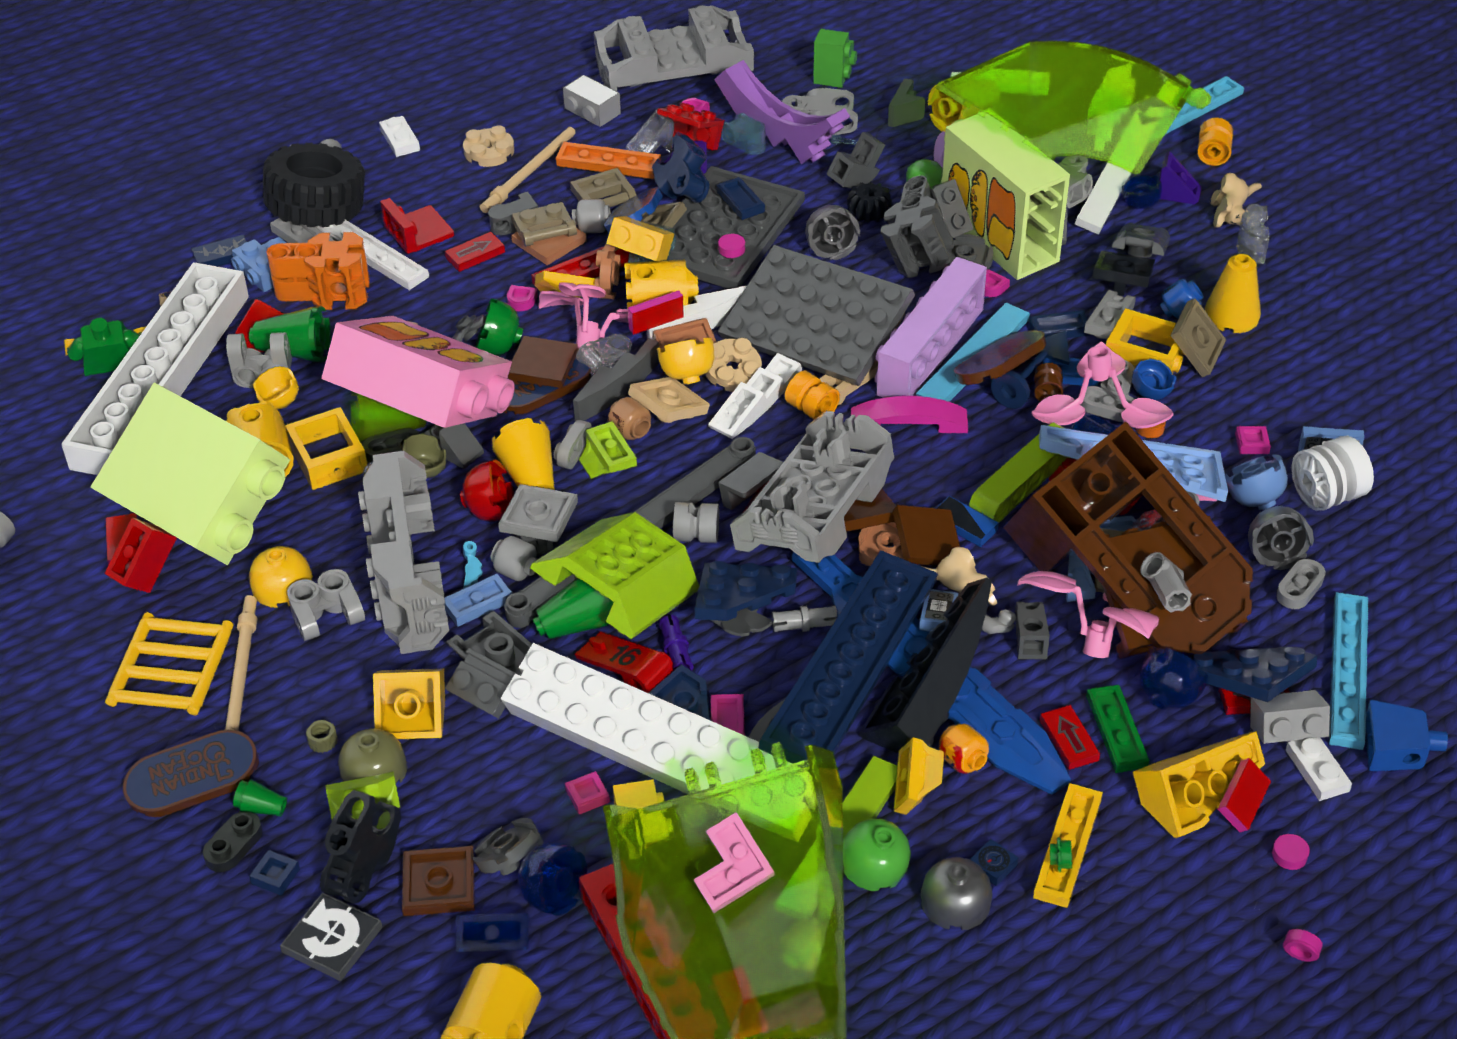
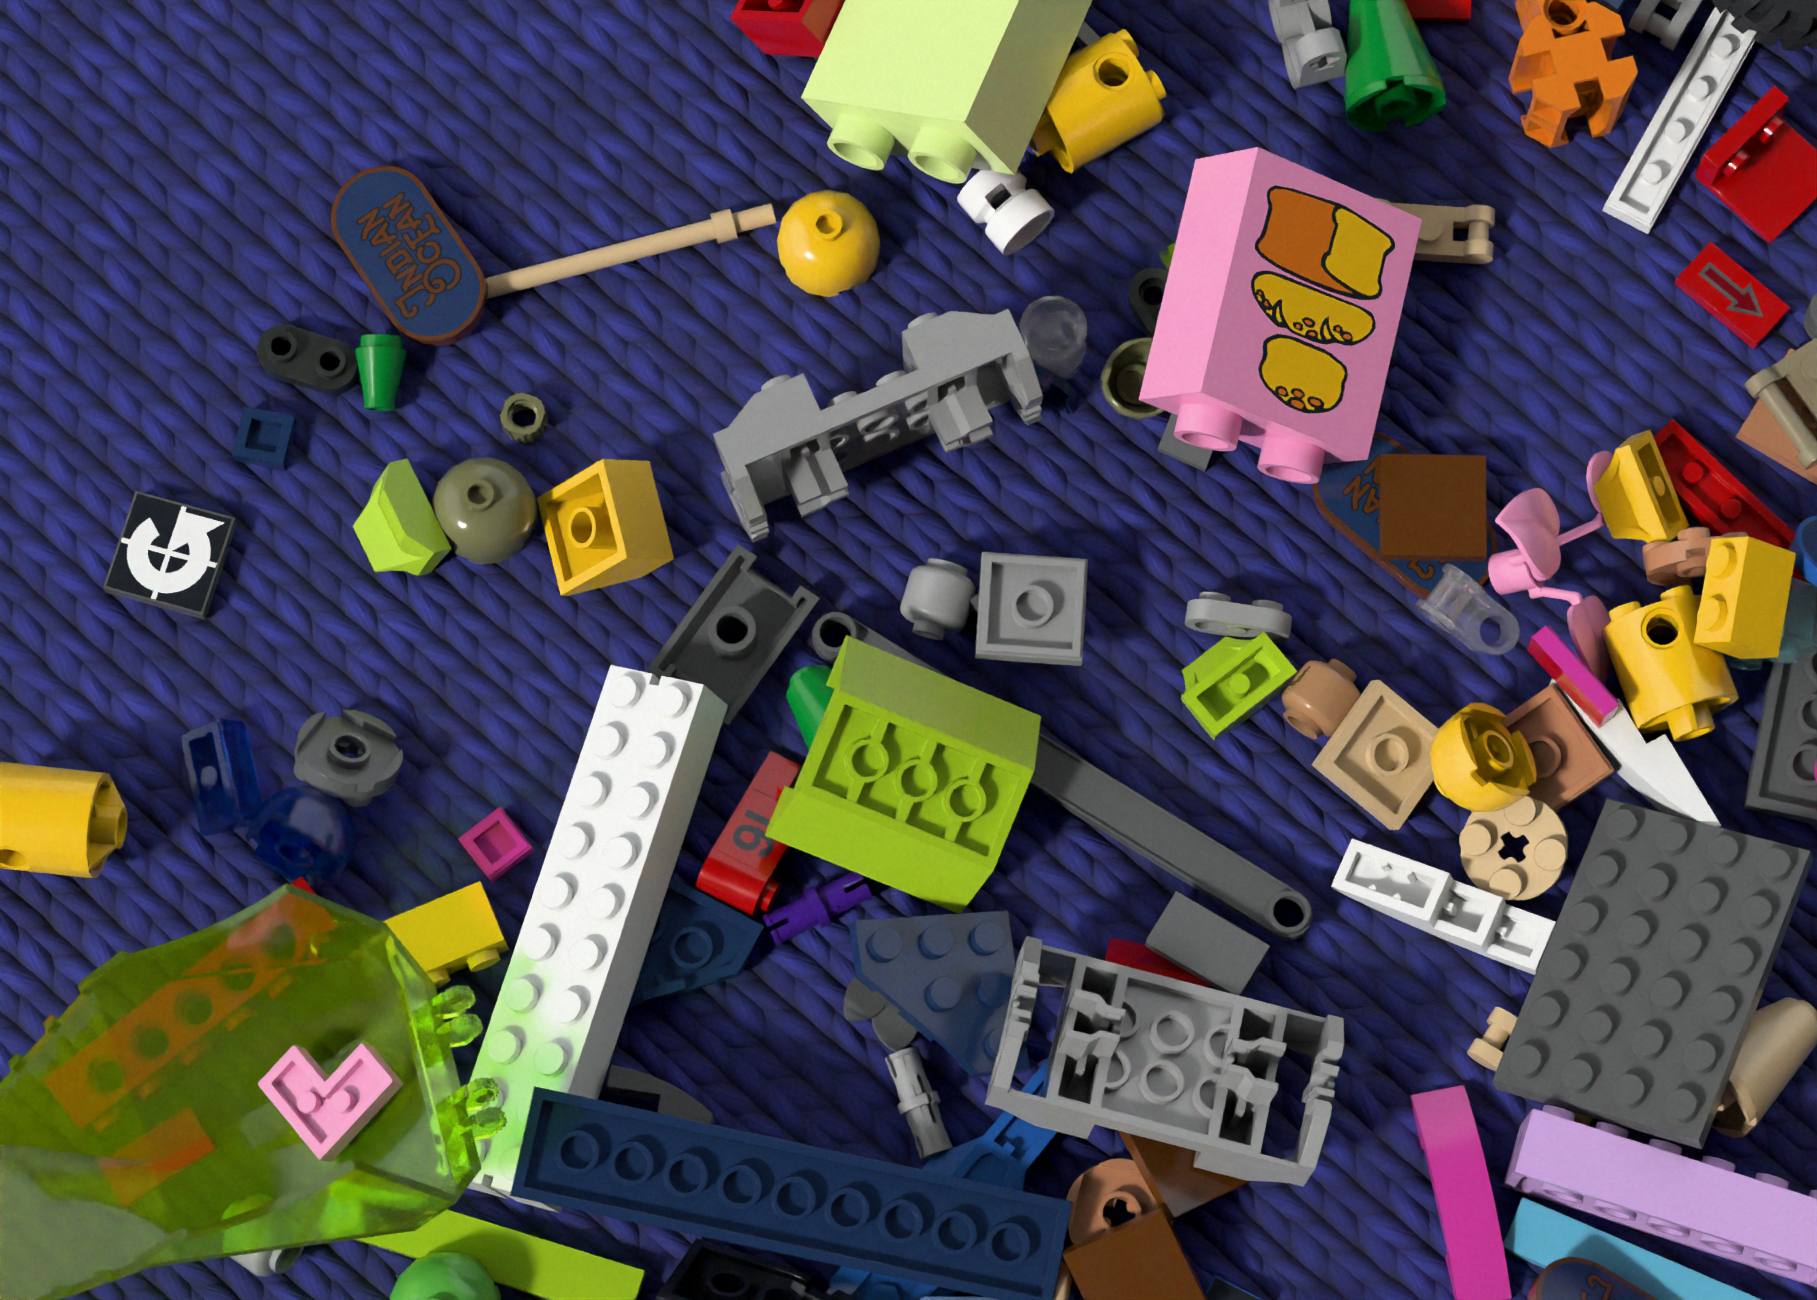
camera: 80 degrees right, 30 degrees up
(140, 646) = (653, 197): yellow bar -> none
(277, 386) = (1252, 78): yellow hair -> none
(300, 494) = (1011, 211): none -> white wheel
(320, 470) = (1091, 239): yellow window -> none
(332, 592) = (748, 307): light grey piece -> none
(358, 846) = (287, 541): black piece -> none
(438, 881) = (294, 673): reddish brown tile -> none
(468, 327) = (1487, 351): dark grey plate -> none
(473, 566) = (921, 536): medium azure piece -> none
(477, 600) = (843, 565): medium blue plate -> none
(481, 682) = (661, 625): dark grey plate -> none
(486, 491) = (1075, 513): red cylinder -> none
(499, 328) = (1495, 406): green cylinder -> none
(522, 297) = (1620, 415): dark pink tile -> none
(526, 453) = (1161, 557): yellow cone -> none
(613, 384) = (1400, 639): dark grey slope -> none
(696, 522) = (1090, 893): light grey wheel -> none
(728, 711) = (676, 1026): dark pink tile -> none
(811, 395) = (1464, 992): light orange wheel -> none

